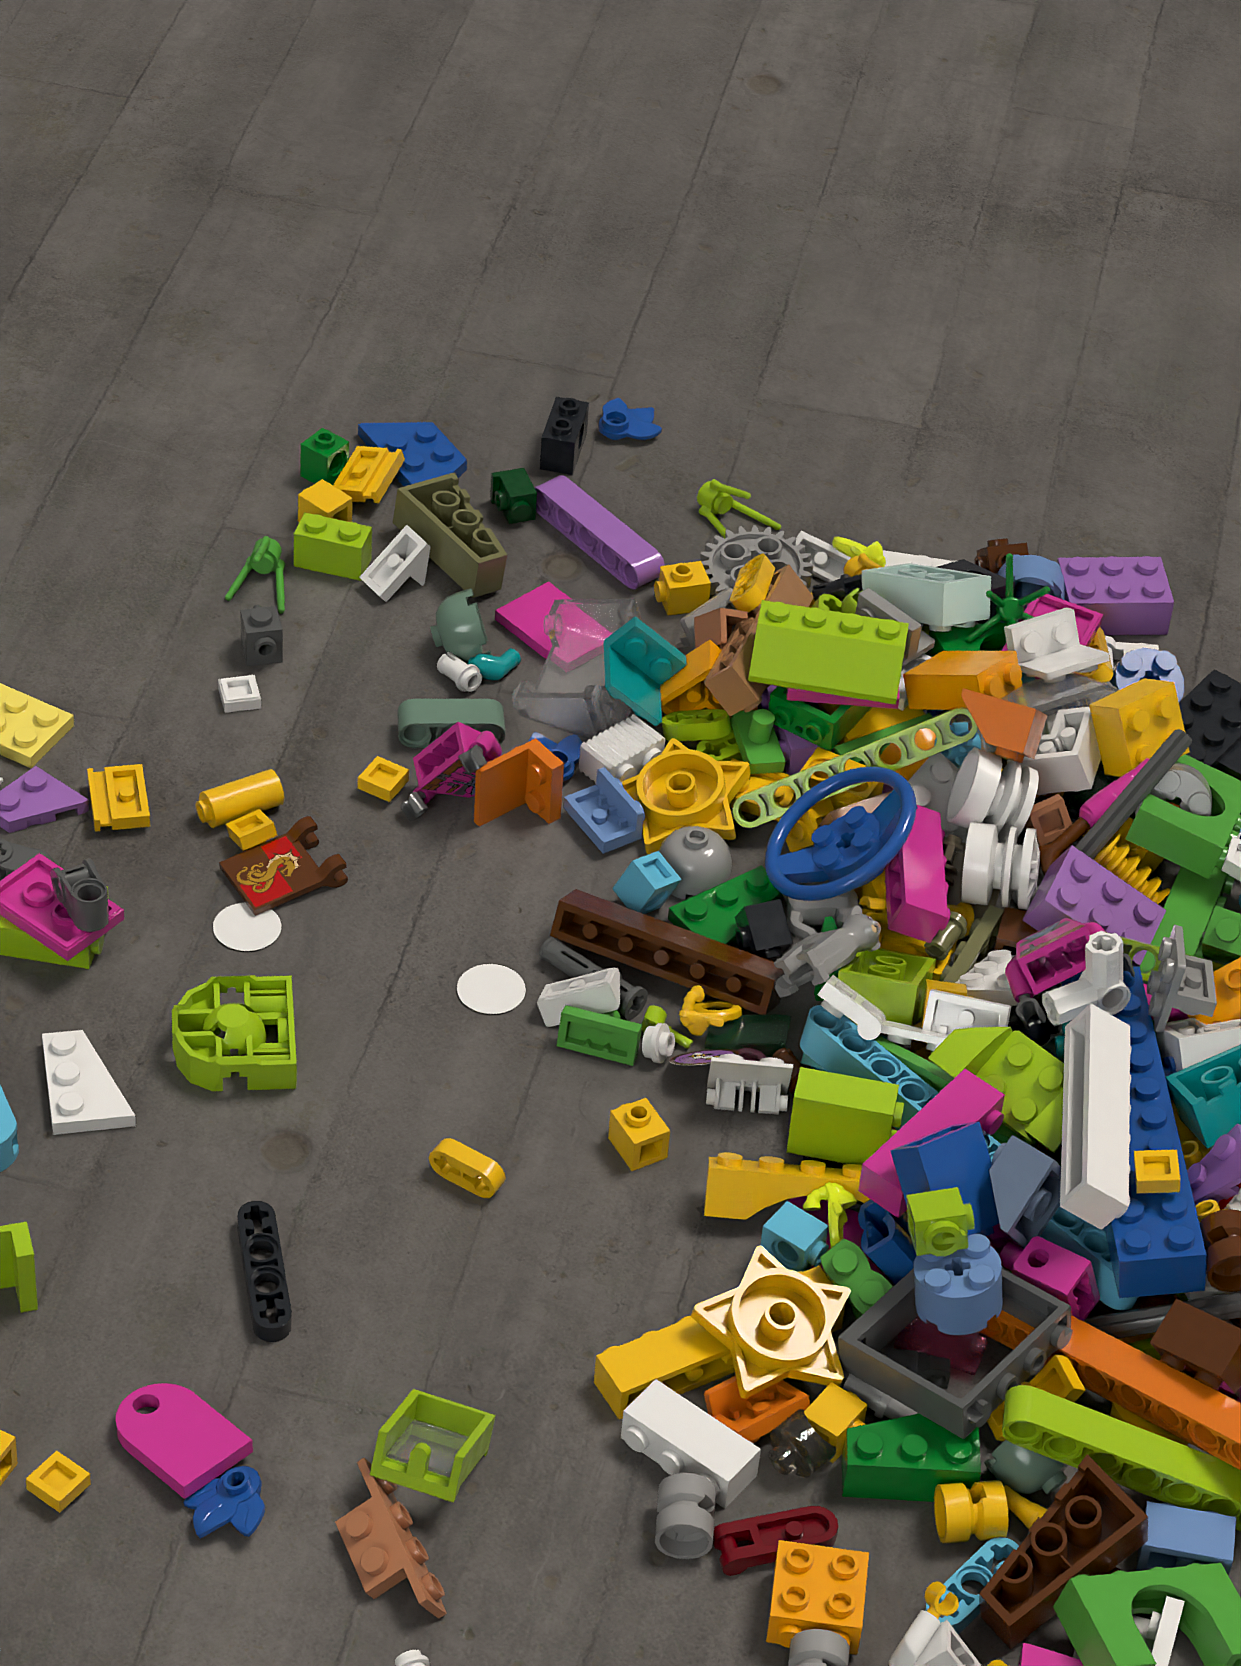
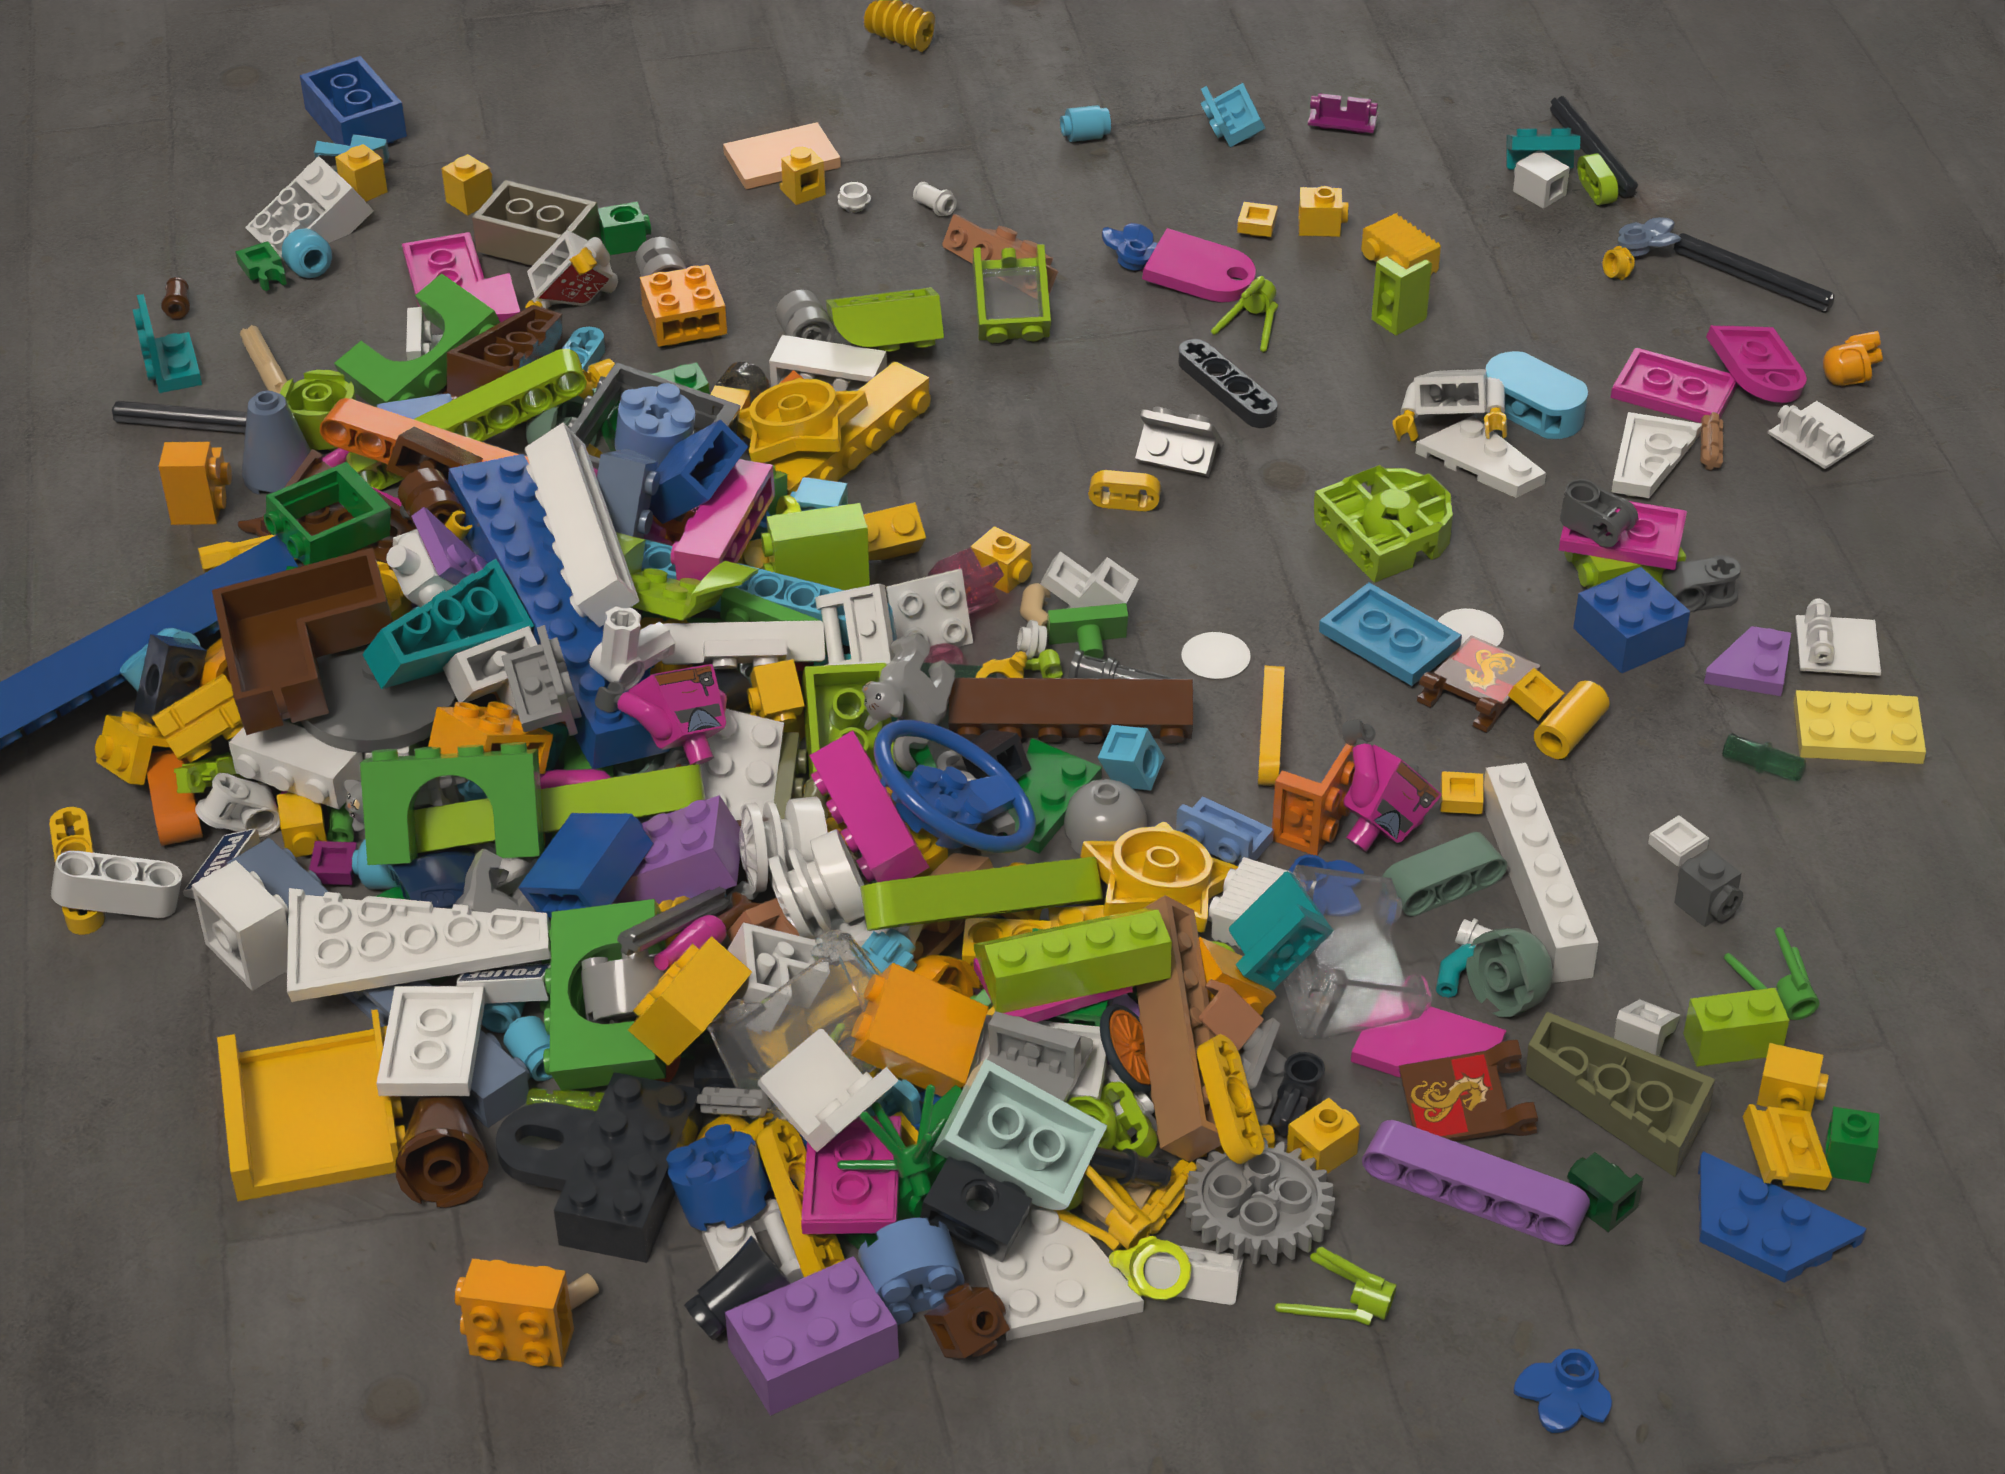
camera: 160 degrees right, 0 degrees up
(65, 1126) = (1453, 394): none -> white torso
(112, 719) = (1764, 757): none -> clear green axle
(118, 847) = (1631, 619): none -> blue brick
(119, 797) = (1681, 683): yellow plate -> none
(150, 1359) = (1255, 299): none -> lime plant
(328, 932) = (1390, 633): none -> dark azure plate
(372, 1196) = (1178, 441): none -> bracket
(378, 692) = (1539, 871): none -> white brick
(498, 888) = (1271, 725): none -> yellow beam
(555, 576) = (1464, 1095): none -> flag
(564, 435) = (1615, 1305): black brick -> none
(573, 1058) = (1080, 588): none -> white brick
(591, 992) = (1125, 642): white slope -> none
(600, 1453) = (889, 318): none -> lime brick
(631, 1086) = (1033, 602): none -> tan arm
(669, 617) = (1299, 1089): none -> black axle
(688, 1106) = (978, 581): none -> clear pink brick
(700, 1057) = (982, 635): sticker -> none
(801, 1525) = (734, 342): dark red plate -> none
(939, 1221) = (682, 406): lime brick -> none
(1006, 725) = (836, 886): orange slope -> none
(1154, 623) = (740, 1280): none -> black plant
(1156, 1171) = (511, 499): yellow plate -> none
(1175, 893) = (586, 862): none -> blue brick

